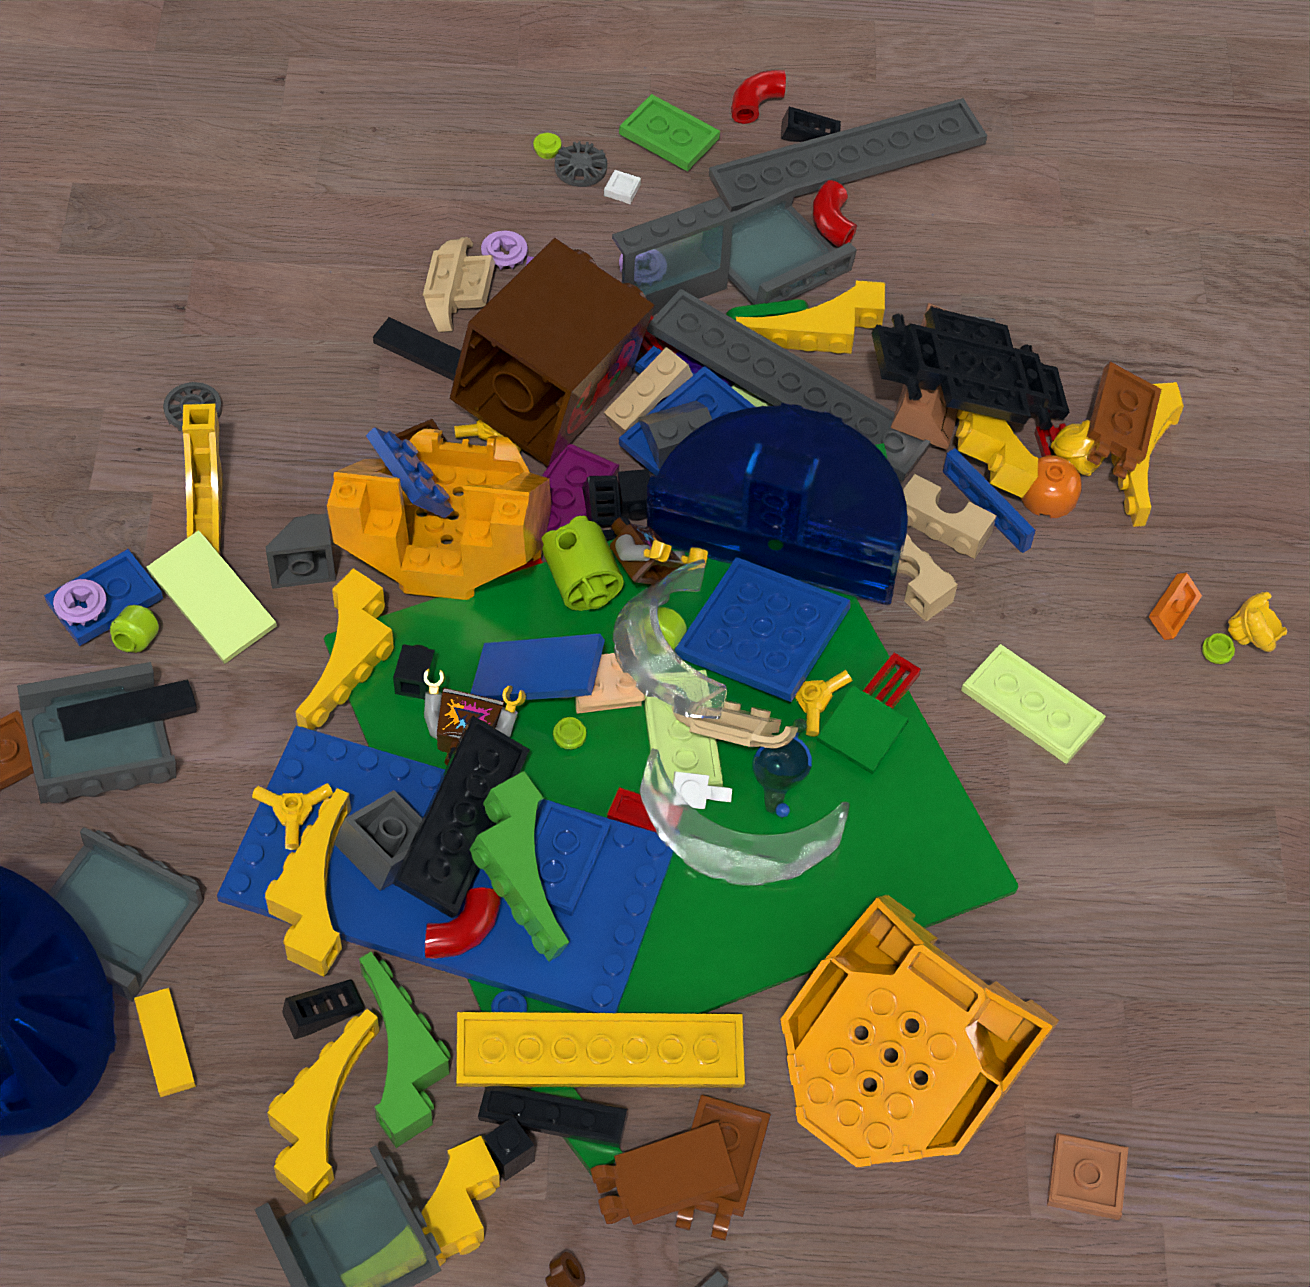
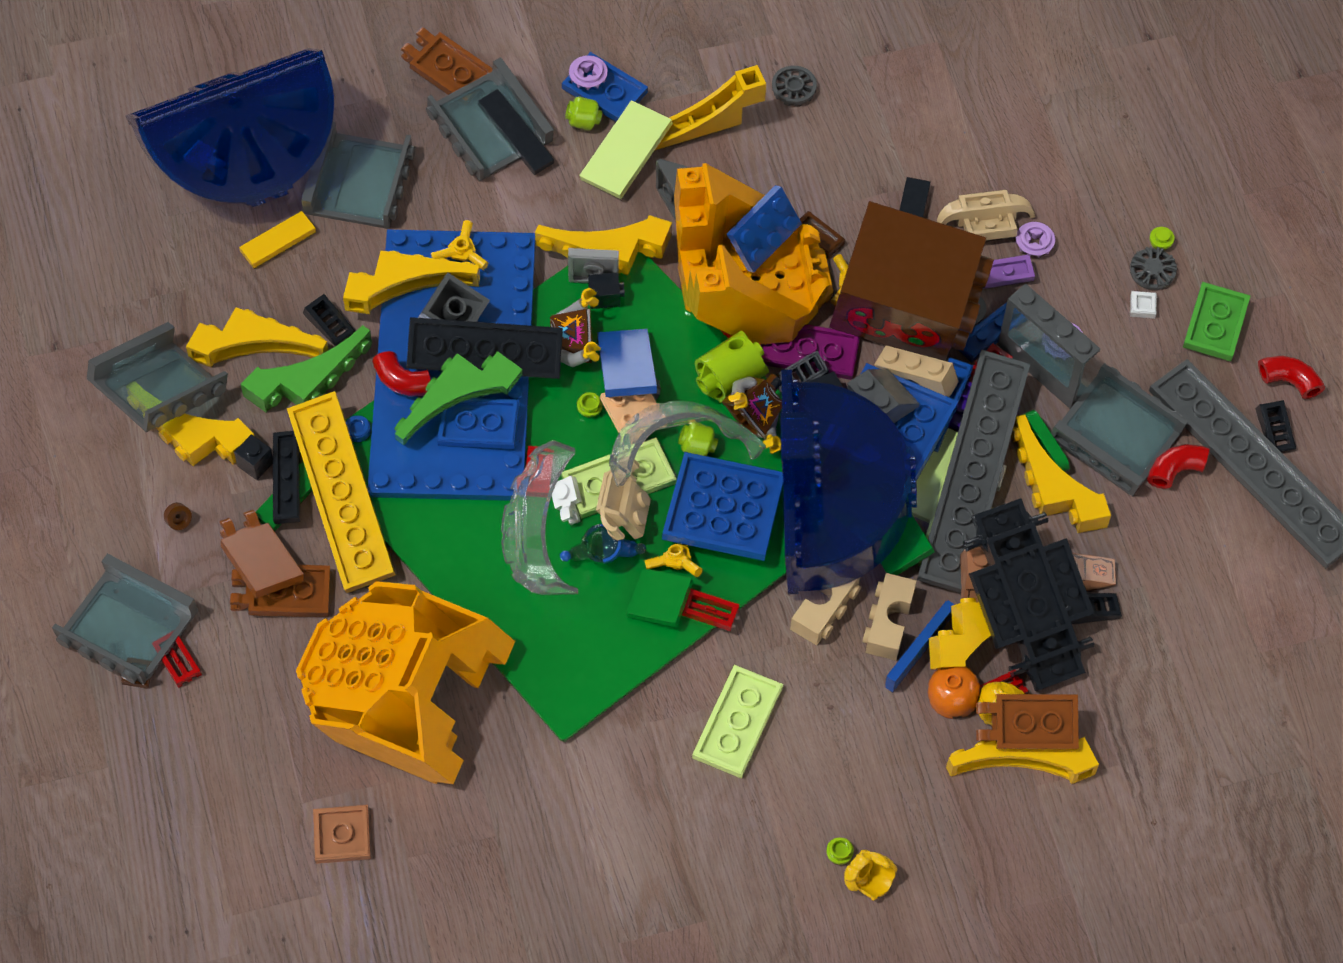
camera: 75 degrees right, 5 degrees up
(381, 667) = (589, 262): none -> light grey tile
(1175, 606) = (867, 808): orange plate -> none

